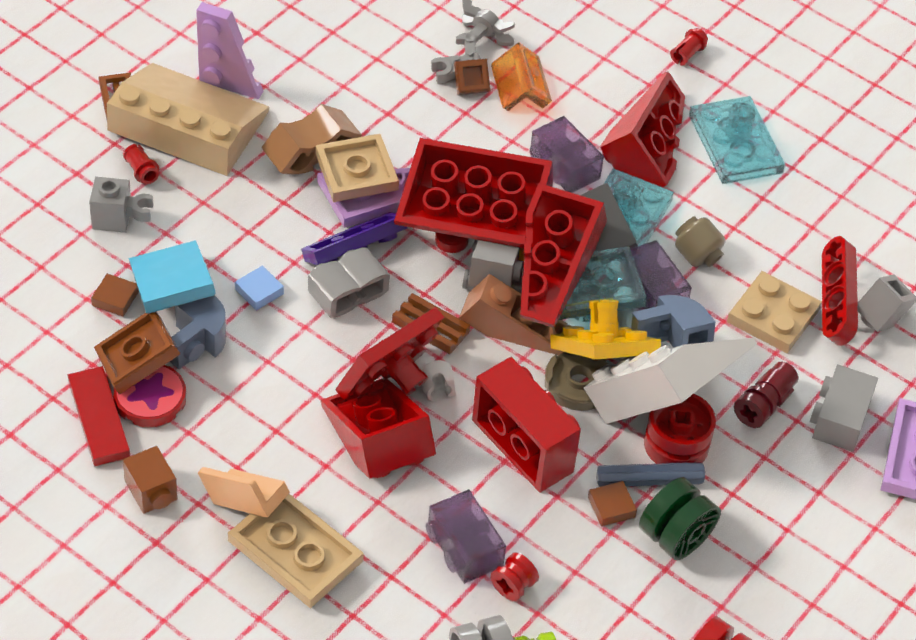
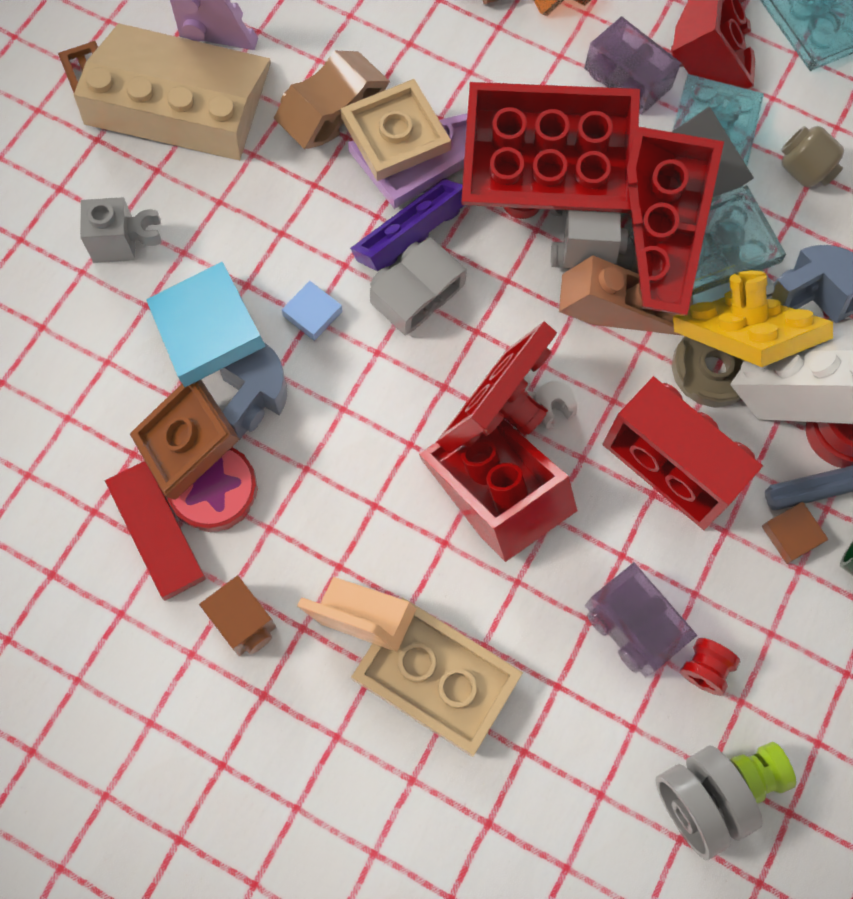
camera: 10 degrees left, 20 degrees up
(114, 294) = (139, 353): dark orange tile -> none
(144, 168) = (140, 171): red pin -> none
(450, 326) = (524, 319): dark orange tile -> none
(658, 273) = (787, 214): clear purple brick -> none

